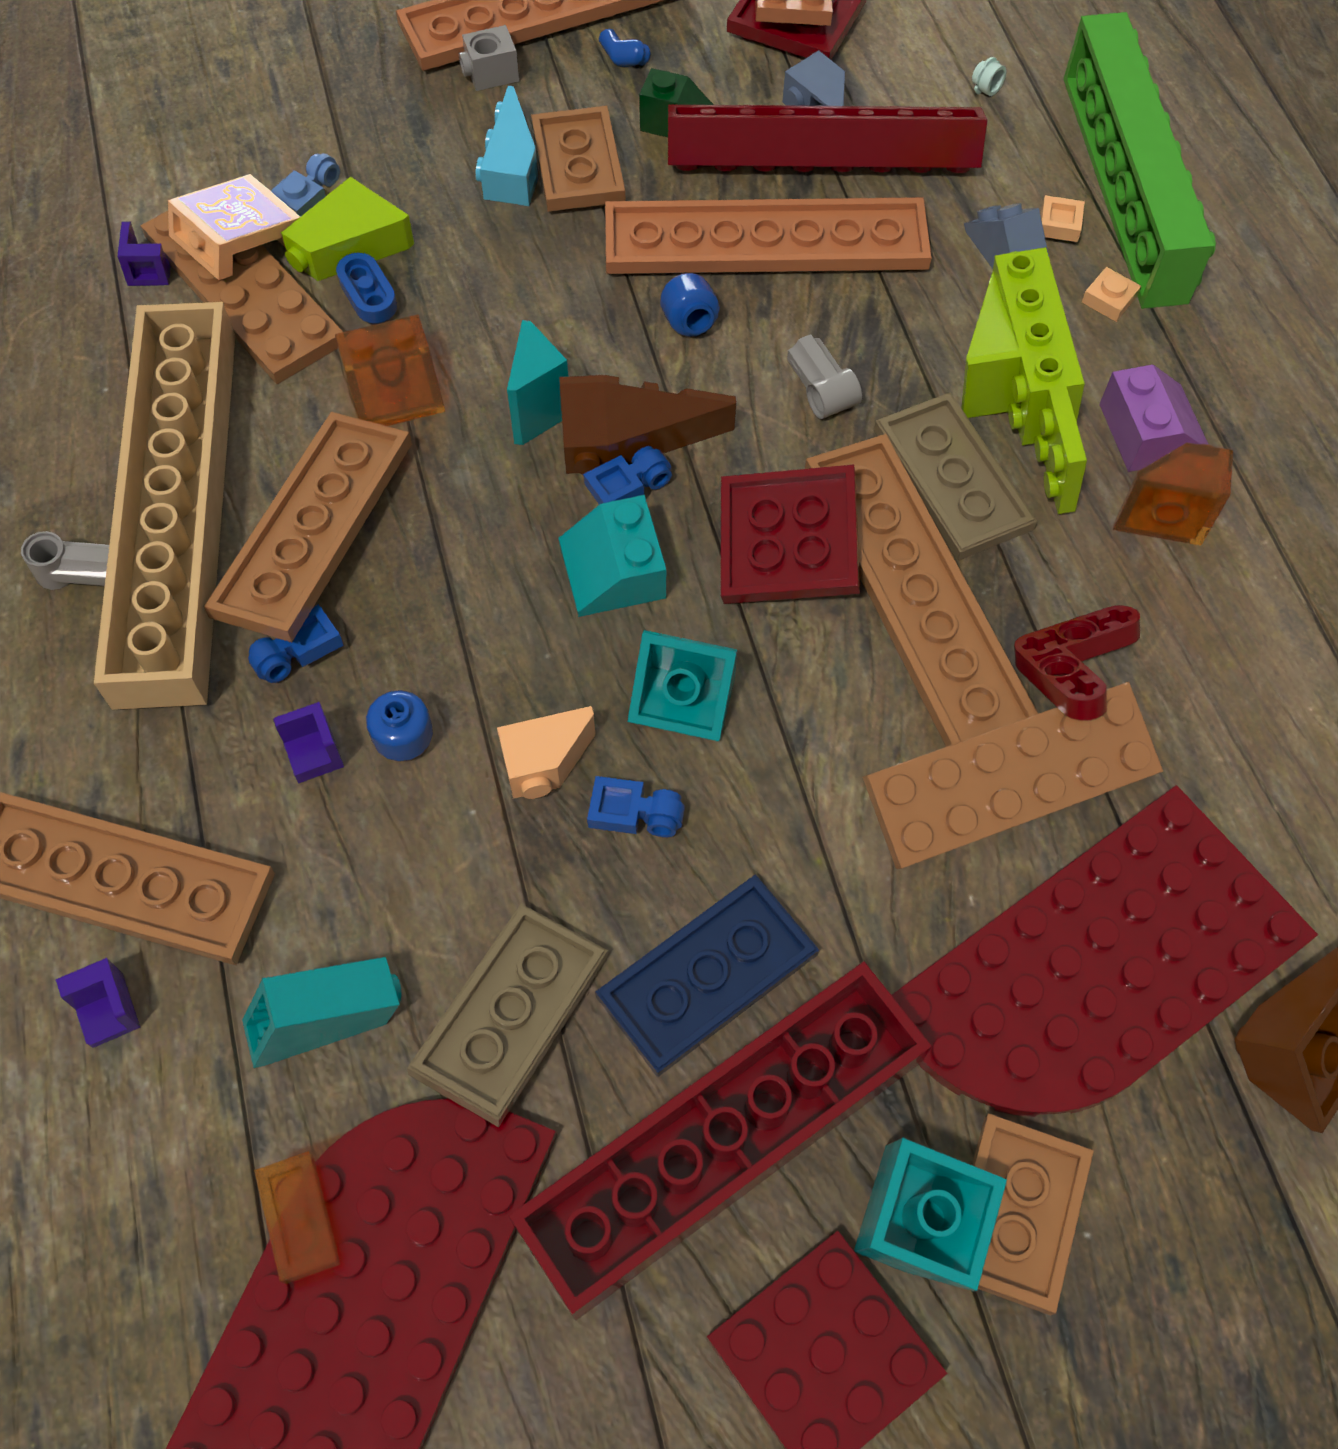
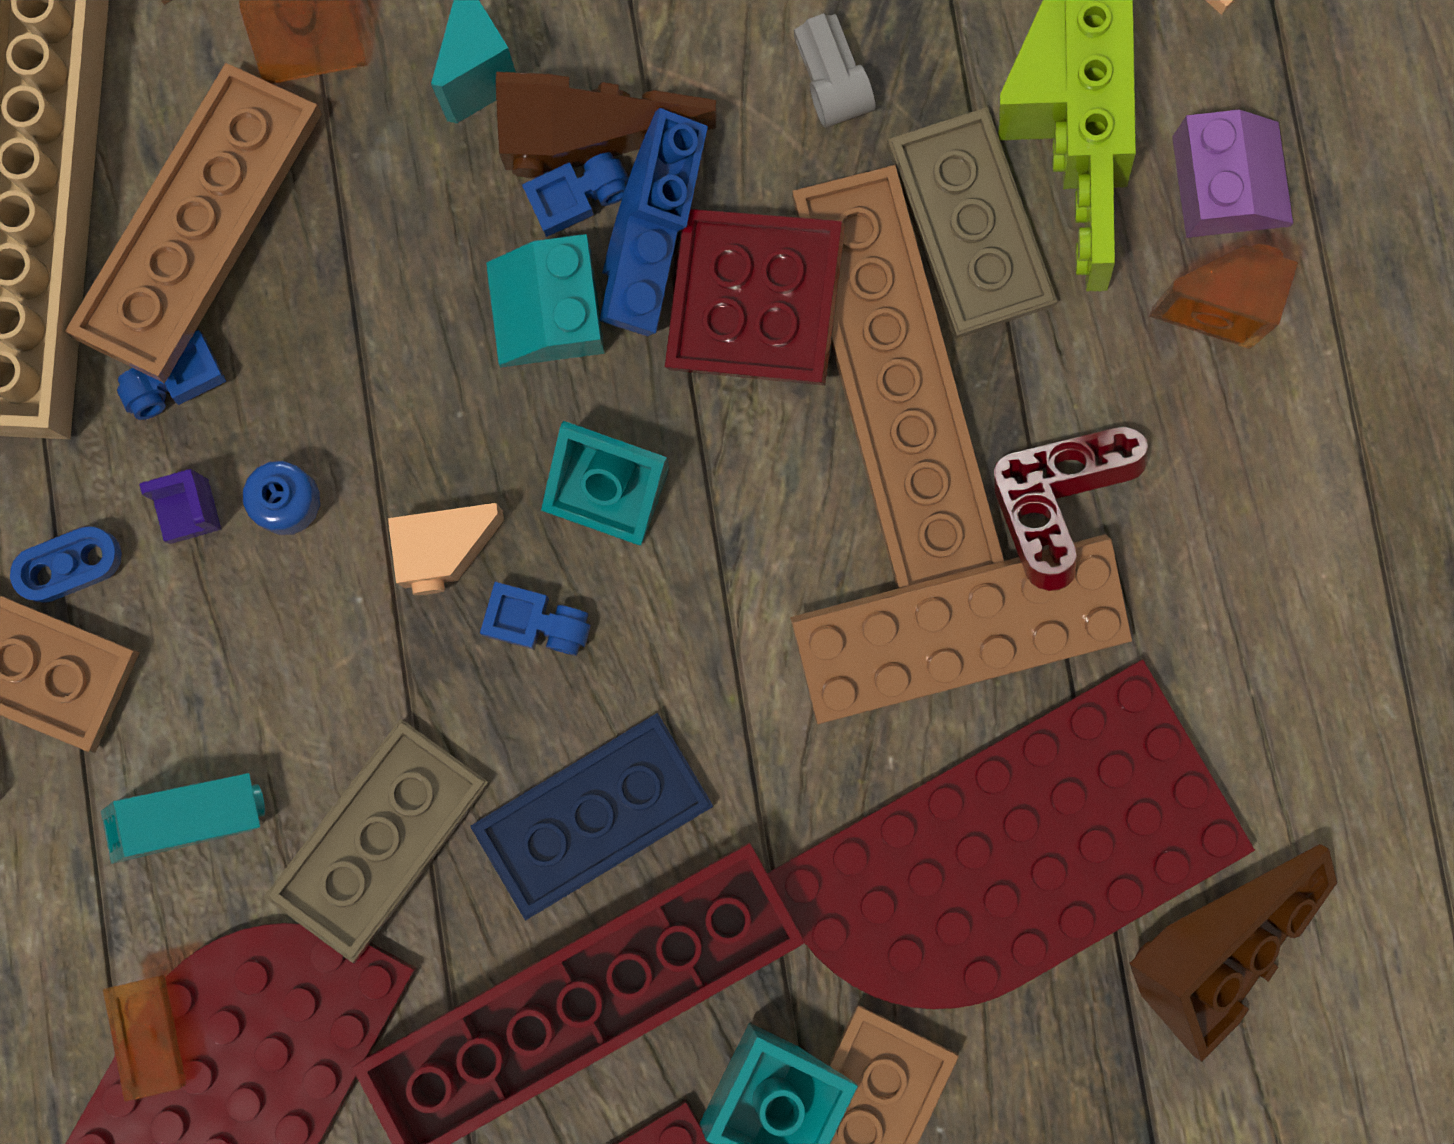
camera: 10 degrees right, 20 degrees up
(206, 801) = (68, 564): none -> blue plate
(692, 488) = (648, 221): none -> blue slope

